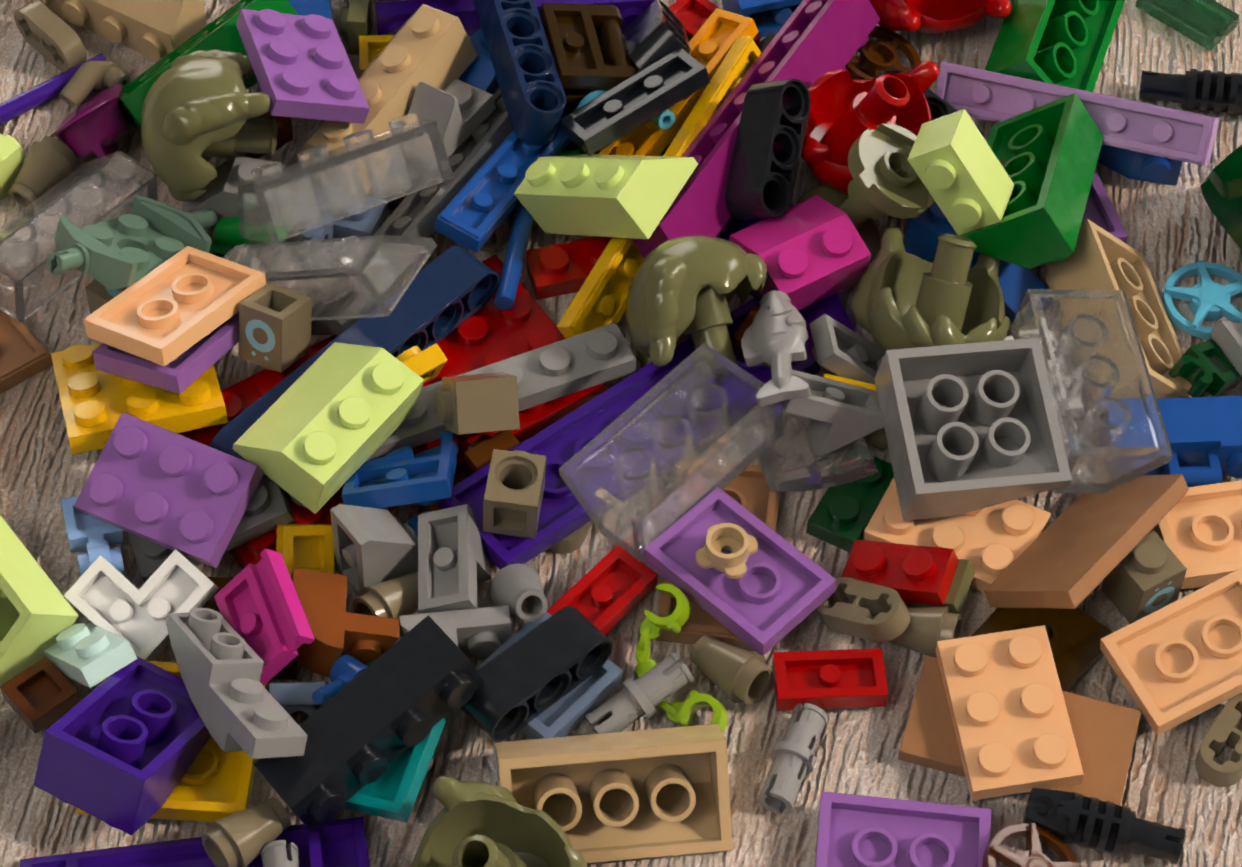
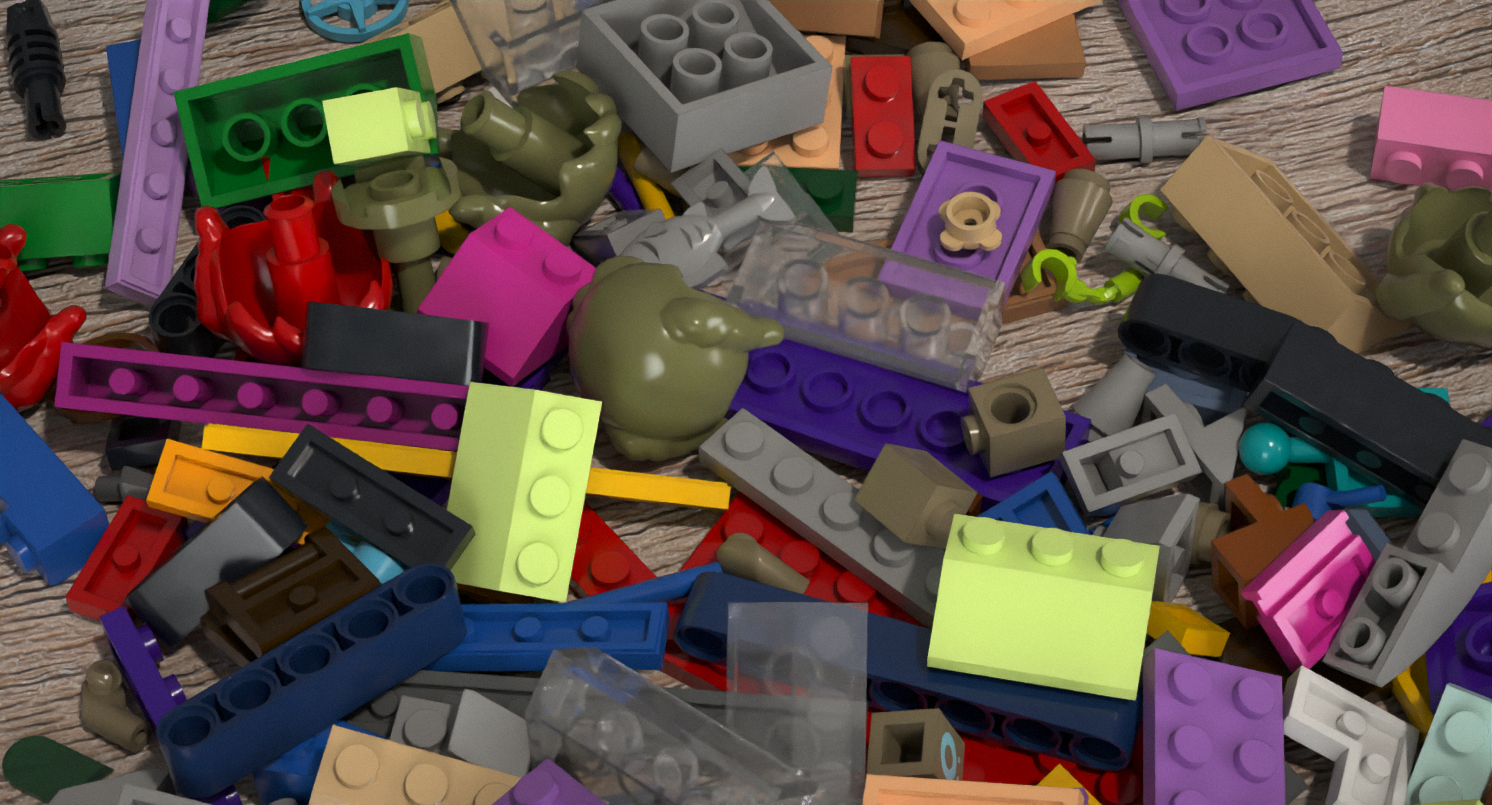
camera: 110 degrees left, 0 degrees up
(424, 363) = (890, 590): yellow plate -> none
(492, 313) = (748, 560): none -> dark tan arm
(610, 590) = (1067, 349): red plate -> none

